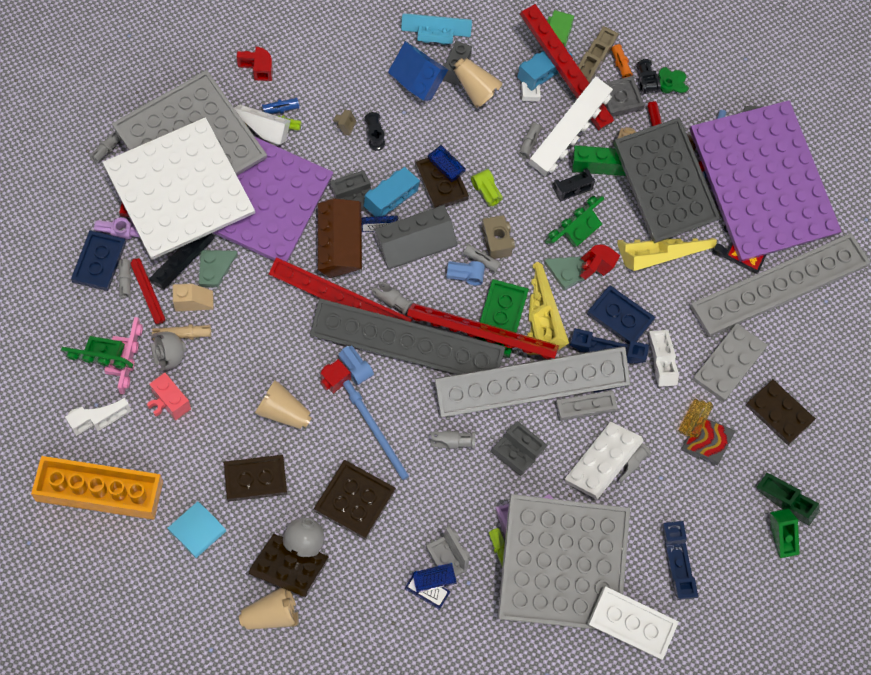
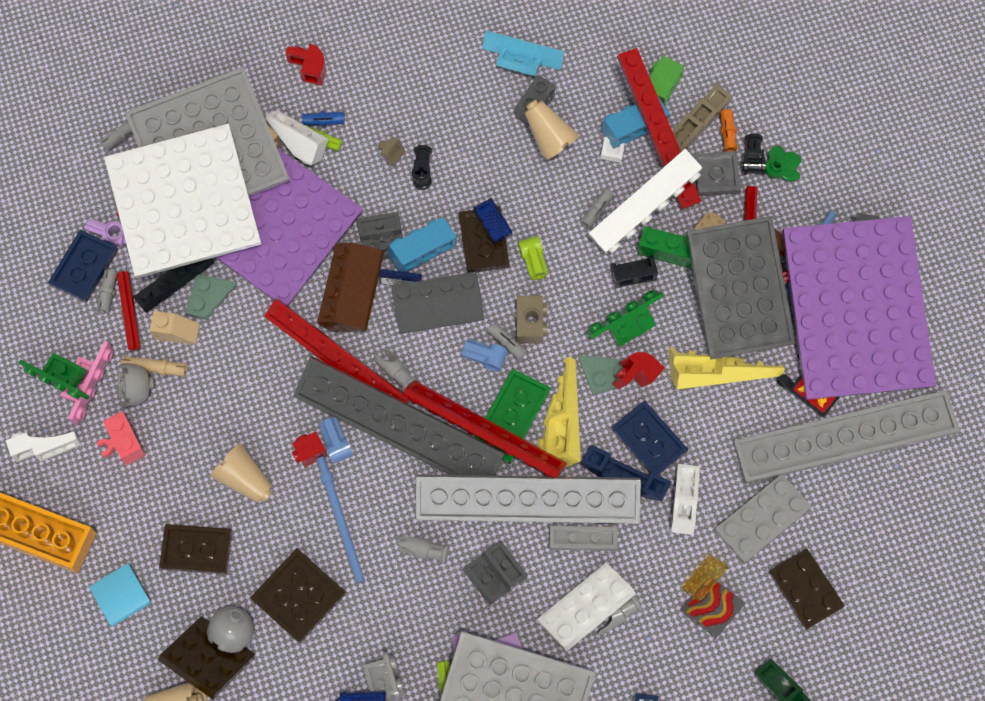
camera: 20 degrees right, 5 degrees up
(417, 72) = (486, 105): blue slope -> none

